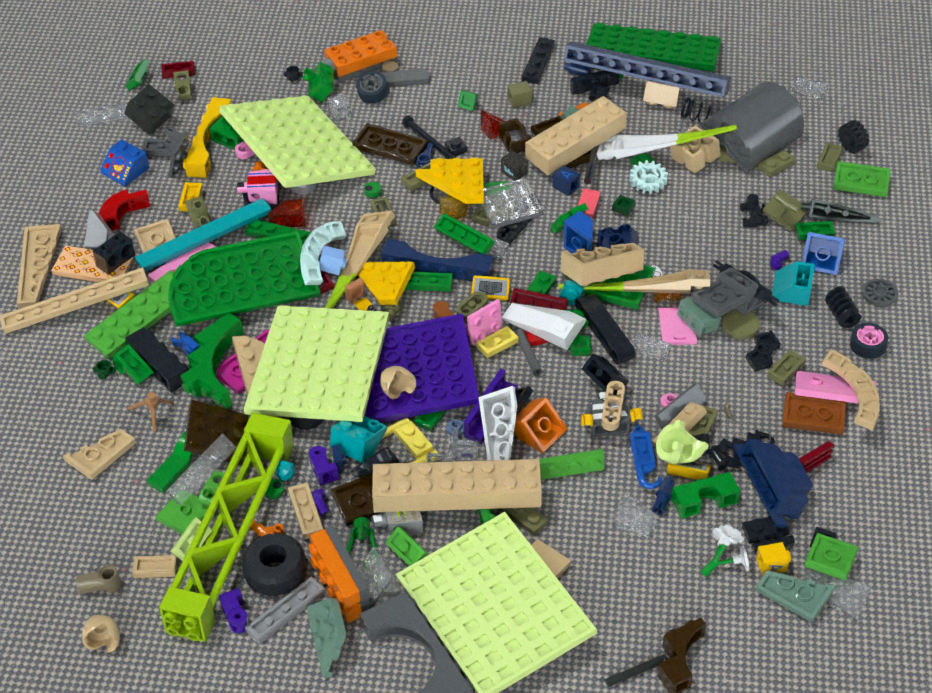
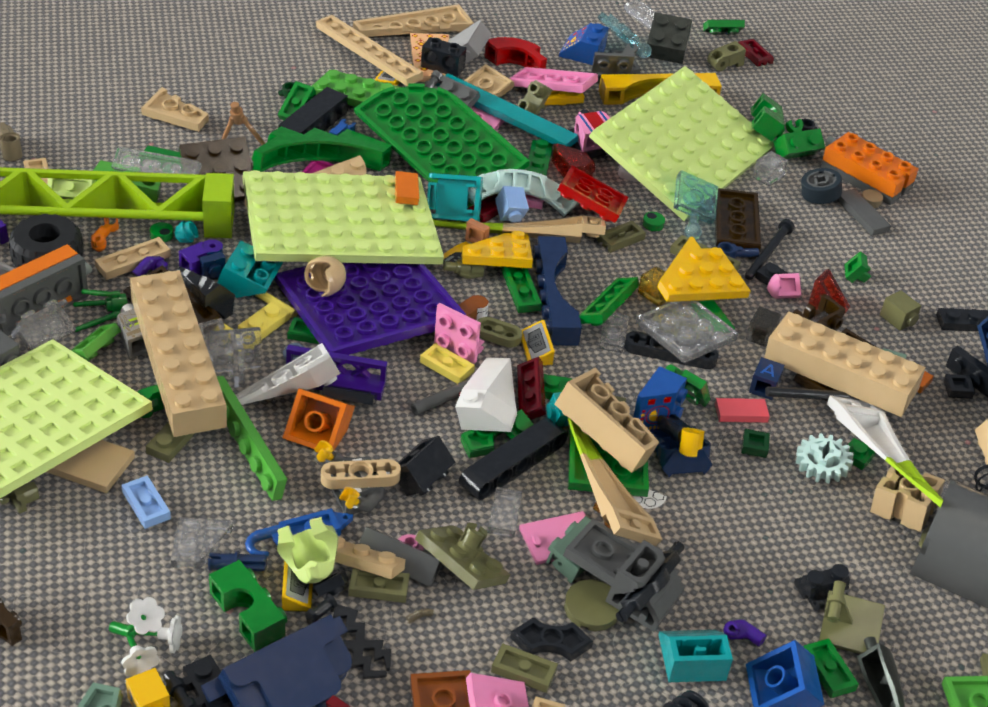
camera: 65 degrees right, 5 degrees down
(134, 133) = (622, 32): none -> clear light blue plate
(165, 259) = (463, 92): none -> dark grey plate
(174, 193) = (555, 79): none -> bright pink plate
(290, 86) = (768, 117): none -> green arch
(301, 312) = (406, 188): none -> orange tile
(312, 291) = (451, 195): none -> teal container
(342, 209) = (592, 194): none -> red plate
(370, 158) = (696, 199): none -> clear light blue plate
(474, 142) = (784, 286): none -> bright pink plate
(592, 538) = (146, 502): none -> light blue plate
(631, 230) = (689, 438): none -> piece
(691, 371) = (464, 555): none -> olive plate
(776, 163) = (953, 604): olive plate -> none

